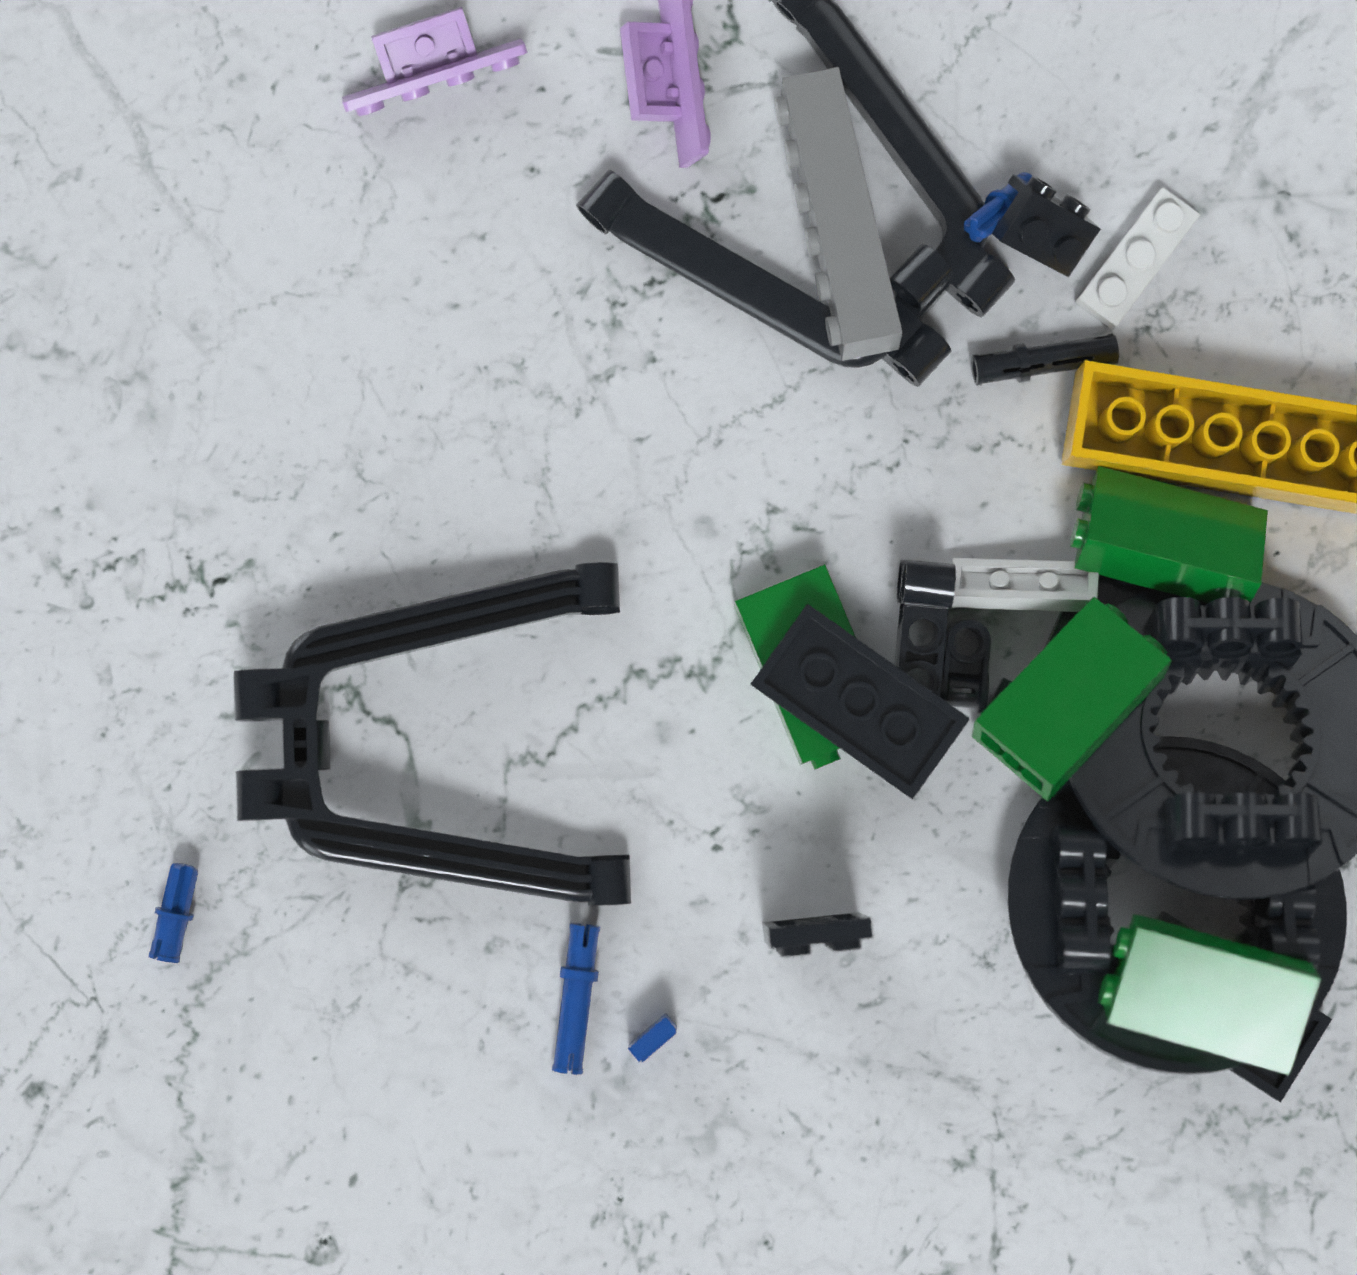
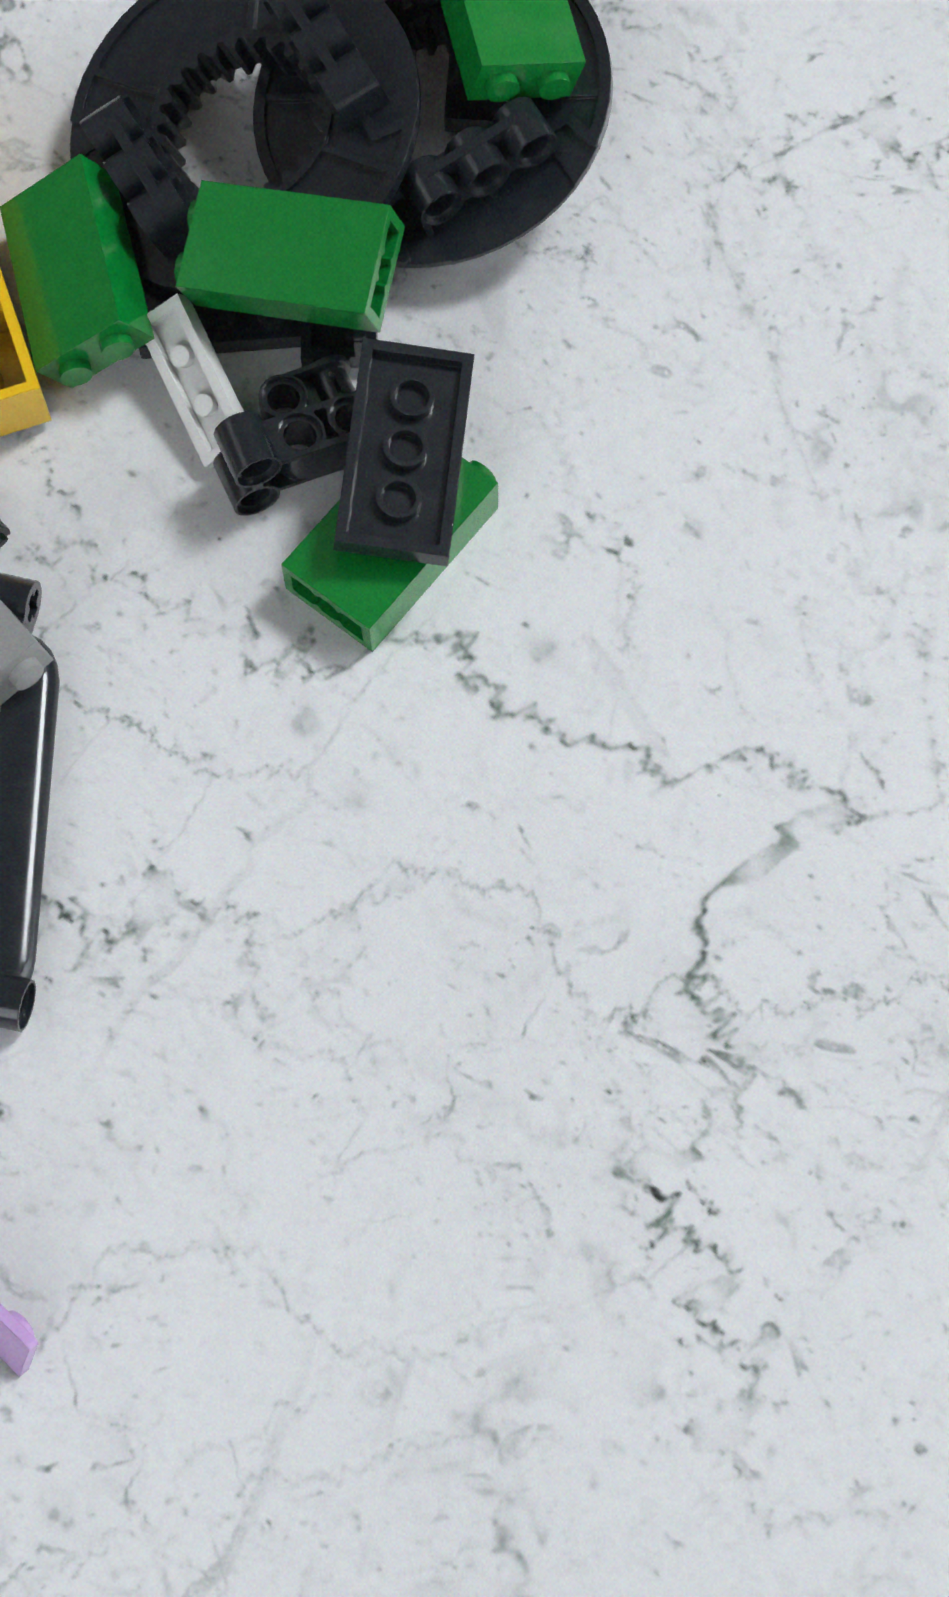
camera: 115 degrees left, 15 degrees down
(296, 790) = (752, 998): black piece -> none
(576, 998) = (840, 591): blue pin -> none
(653, 1038) = (852, 491): blue tile -> none
(836, 931) = (657, 373): black plate -> none

